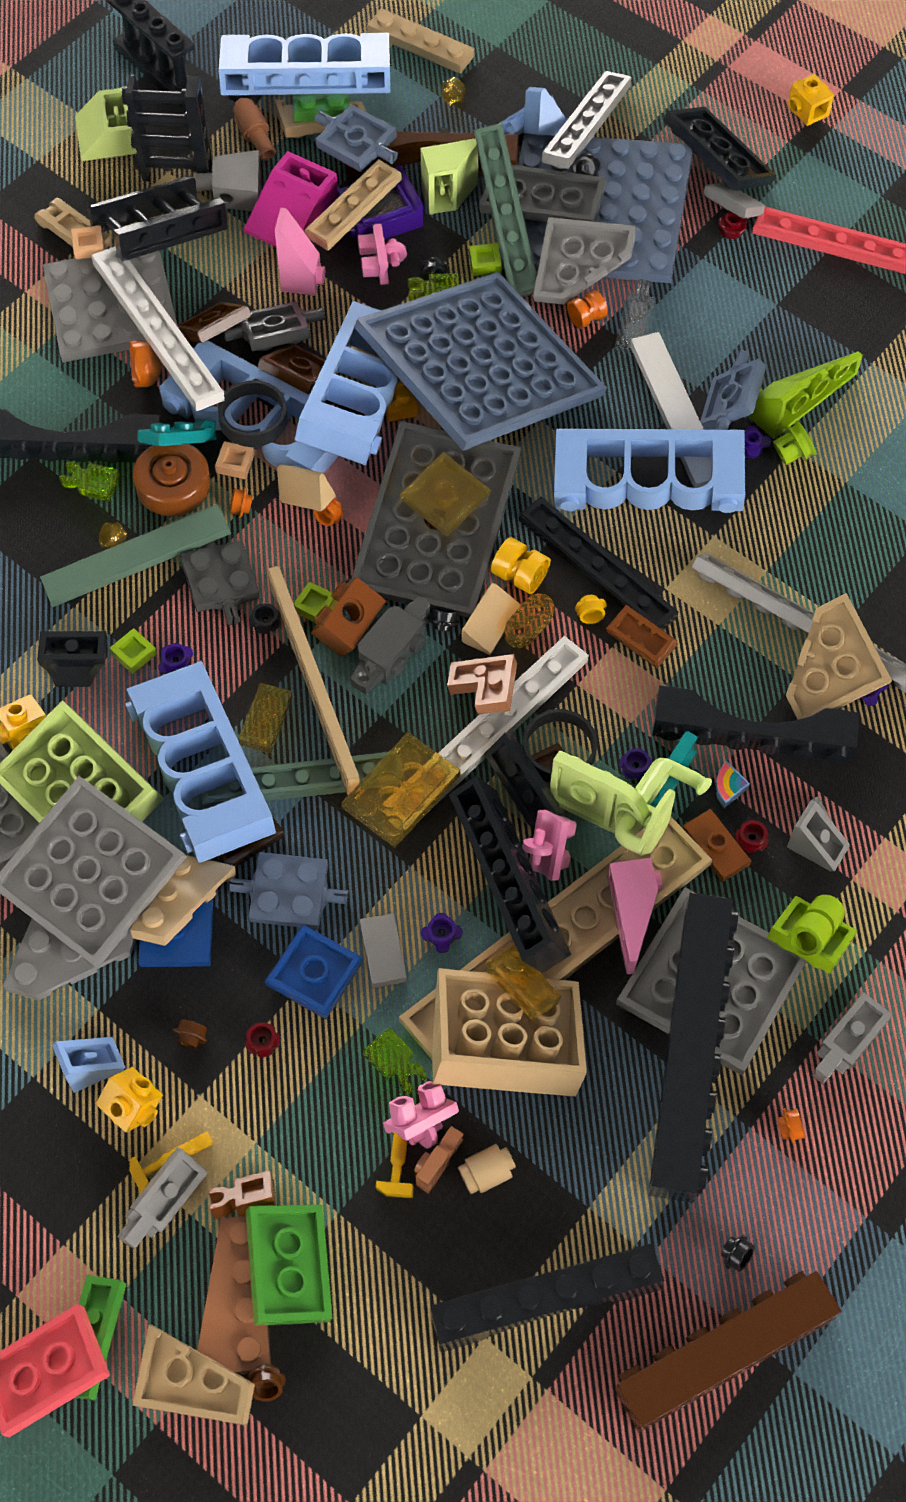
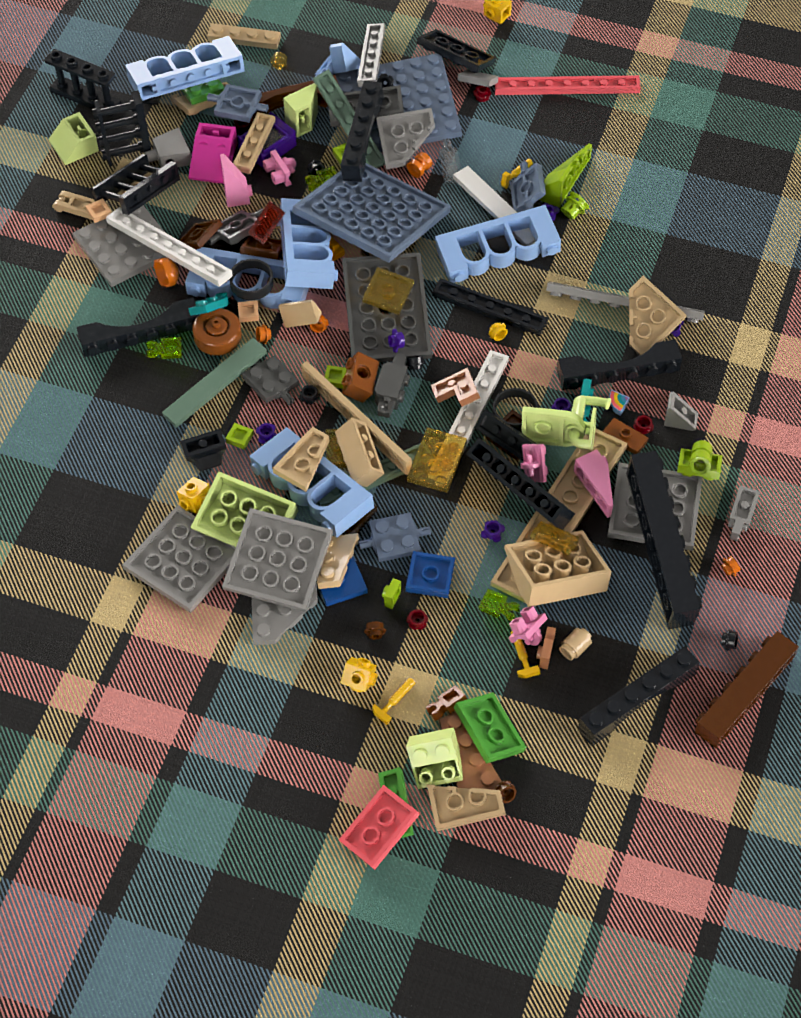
camera: 20 degrees left, 5 degrees down
(88, 1060) = (322, 664): light blue slope -> none
(112, 535) = (194, 375): clear yellow plate -> none
(162, 1198) = (401, 719): light grey hinge -> none
(181, 1284) = (435, 758): none -> yellowish green slope
(196, 722) = (303, 459): none -> tan wing
(241, 982) = (391, 593): none -> lime plate
(253, 127) = (166, 114): nougat arm -> none
(287, 738) = (359, 452): none -> tan brick
(311, 334) = (267, 223): none -> clear red slope
(383, 950) = (464, 551): light grey tile -> none
(424, 576) = (396, 340): none -> dark purple plate
(486, 266) = (355, 151): none -> black arch
(489, 619) = (442, 355): tan slope -> none
(524, 567) = (447, 319): yellow wheel -> none
(534, 624) = (467, 349): clear yellow beam -> none
(641, 636) = (534, 337): dark orange plate -> none
(709, 367) = (506, 177): none -> yellow piece

